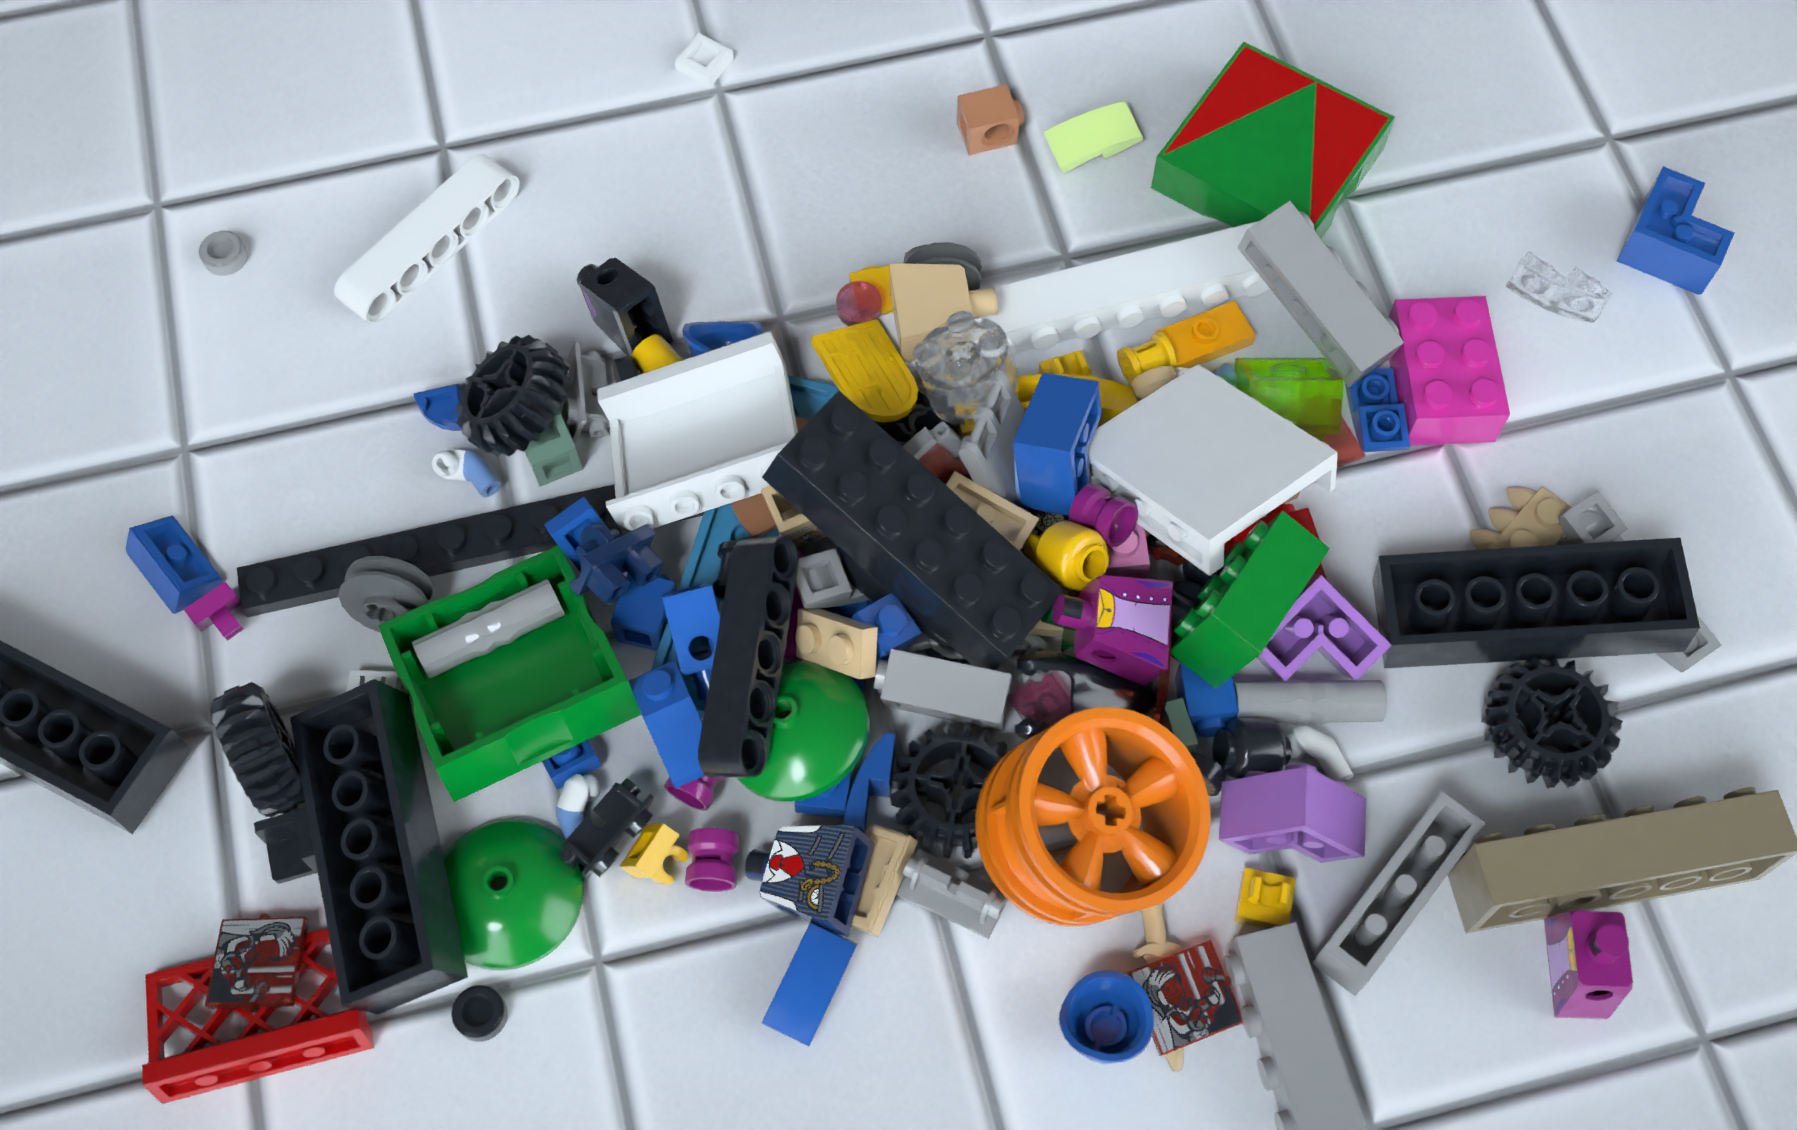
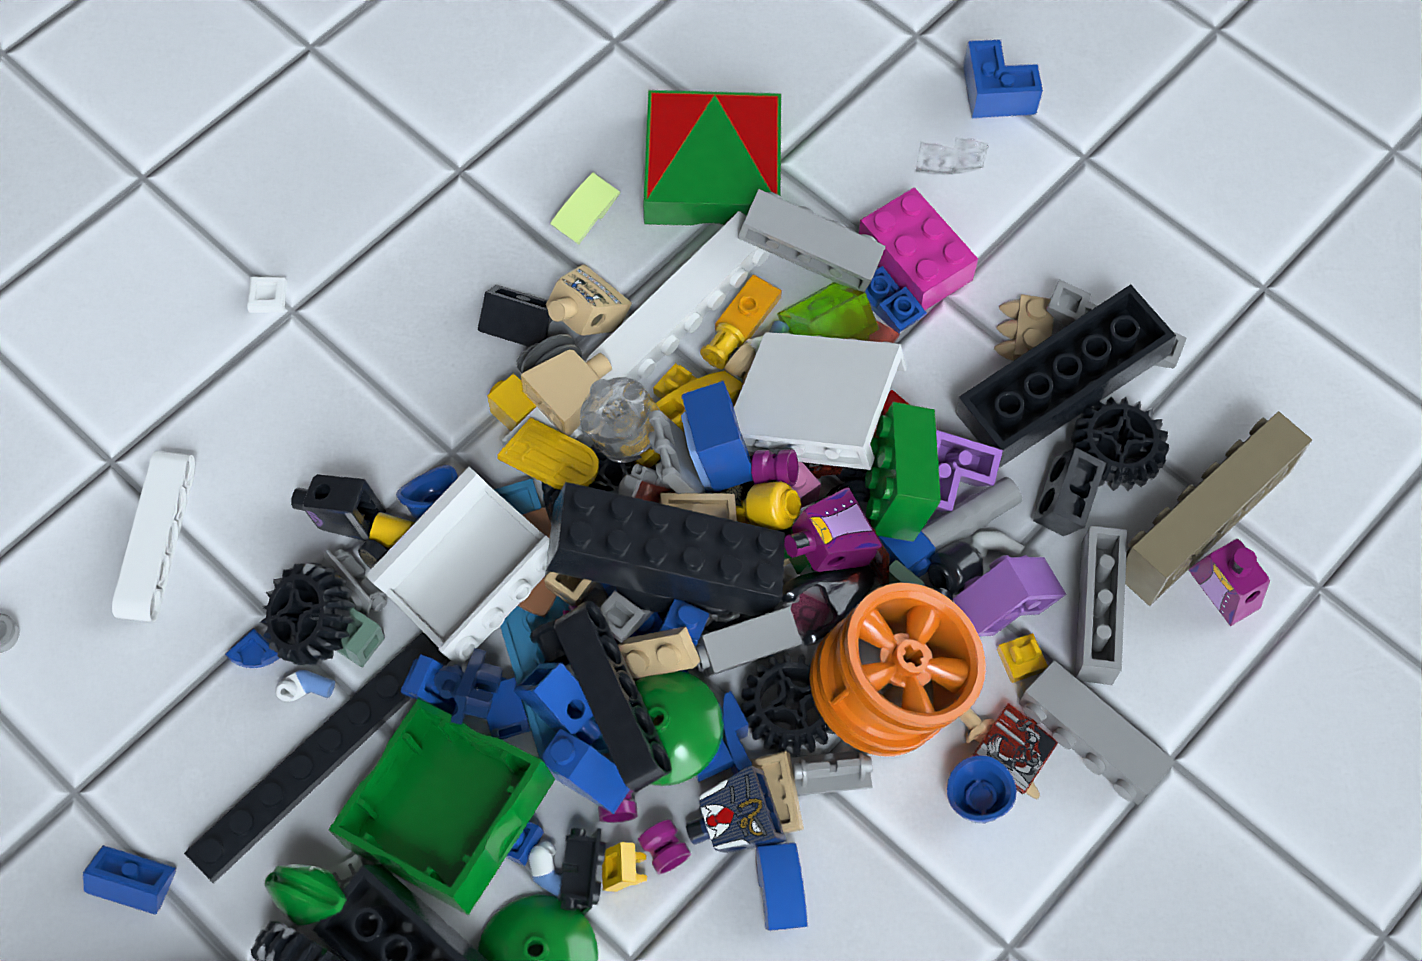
camera: 35 degrees left, 0 degrees up
(216, 609) = (193, 892): magenta tile -> none
(307, 673) = (304, 893): none -> green hat
(383, 589) = (312, 805): dark grey piece -> none
(488, 628) = (405, 785): light grey axle -> none
(858, 303) = (510, 413): clear pink tile -> none
(943, 208) = (514, 316): none -> black panel
(989, 119) = (505, 233): nougat brick -> none
(1022, 231) = (587, 303): none -> tan torso
(1447, 741) = (1069, 492): none -> black brick

